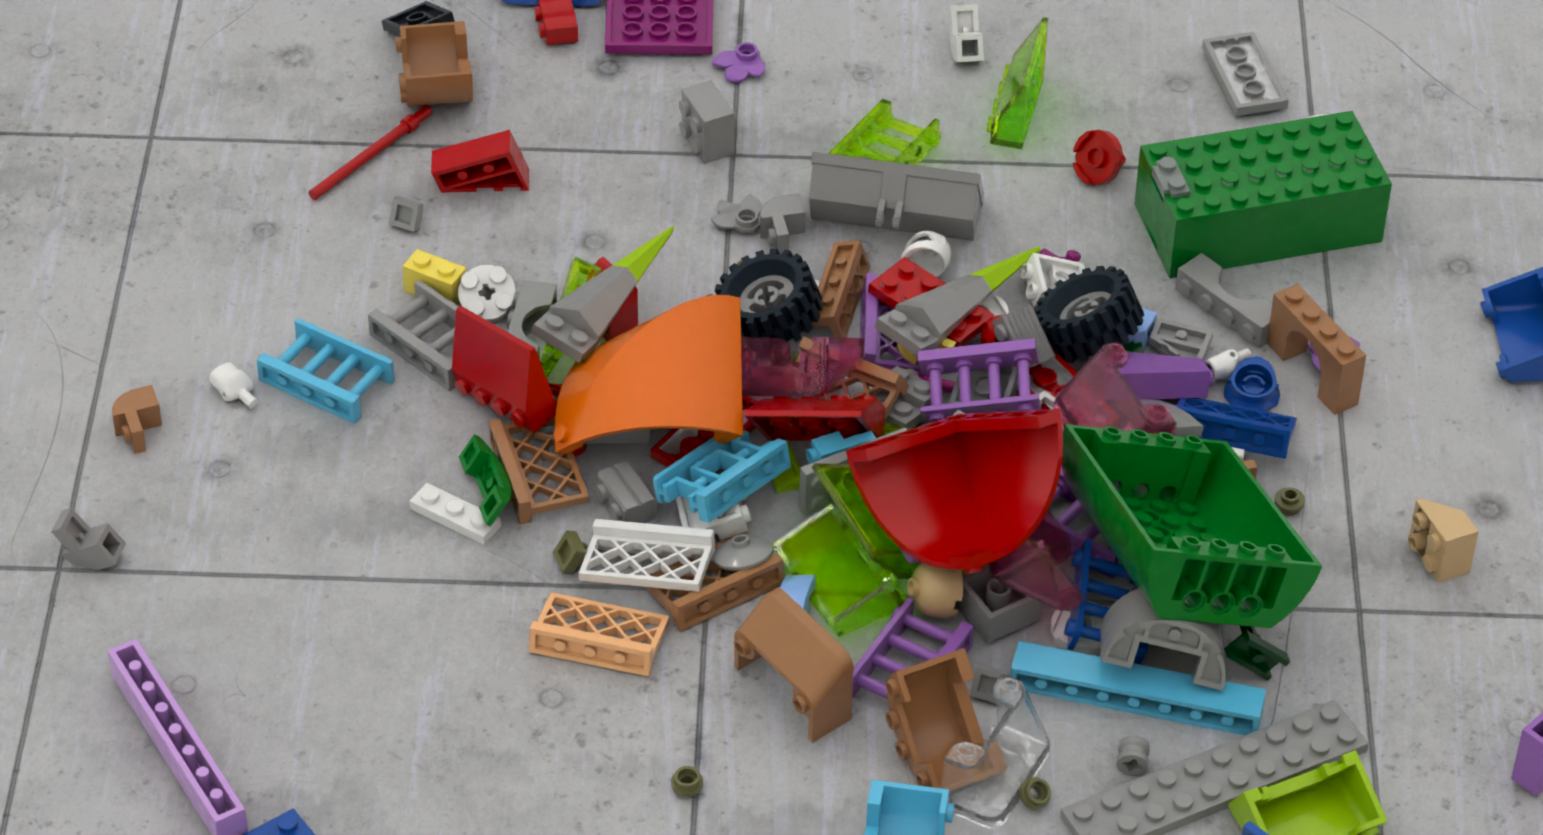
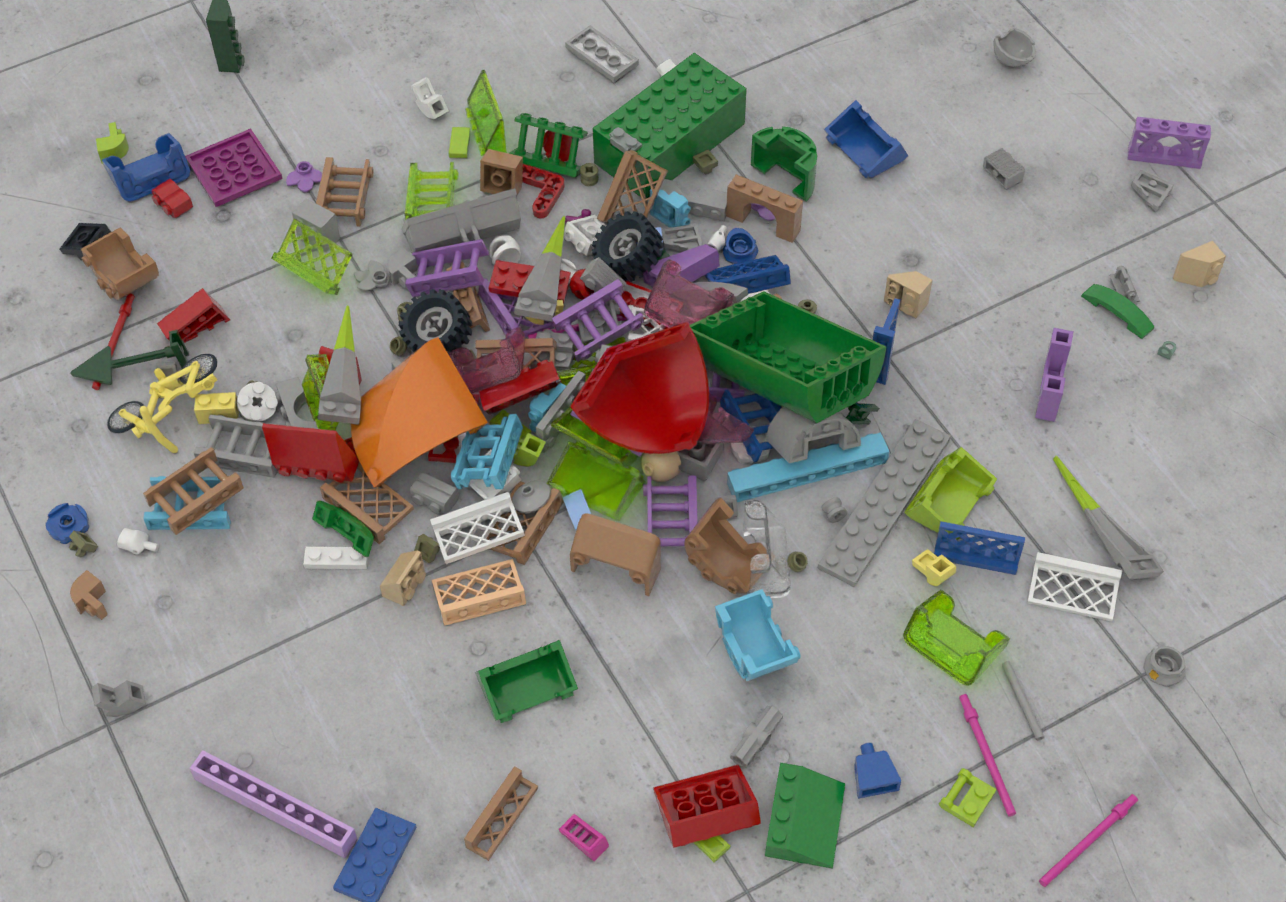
camera: 30 degrees left, 10 degrees up
(161, 338) = (62, 512): none -> blue plate
(170, 357) = (82, 542): none -> olive tile
(331, 172) = (100, 366): none -> dark green piece
(335, 246) = (195, 374): none -> light yellow piece
(338, 372) = (202, 505): none -> medium nougat fence
(516, 572) = (404, 578): none -> tan slope
(576, 757) = (527, 681): none -> green windscreen
(660, 169) = (307, 272): none -> clear neon green fence
(687, 781) = (597, 655): olive plate -> none
(766, 80) = (328, 183): none -> medium nougat fence
(779, 497) = (528, 450): none -> lime brick
(840, 255) = (448, 280): none -> medium lavender fence
(971, 104) = (459, 142): none -> lime tile
(994, 156) = (500, 172): none -> medium nougat brick
(1054, 205) = (528, 177): none -> red beam
(1056, 163) = (536, 158): none -> green fence
(1114, 212) = (589, 174): none -> olive wheel
(1130, 234) = (620, 183): none -> medium nougat fence
(1186, 293) = (670, 209): none -> medium azure plate
(1283, 262) = (705, 161): none -> olive tile
(1347, 578) = (885, 336): none -> blue fence
(1403, 287) = (790, 151): none -> green cylinder

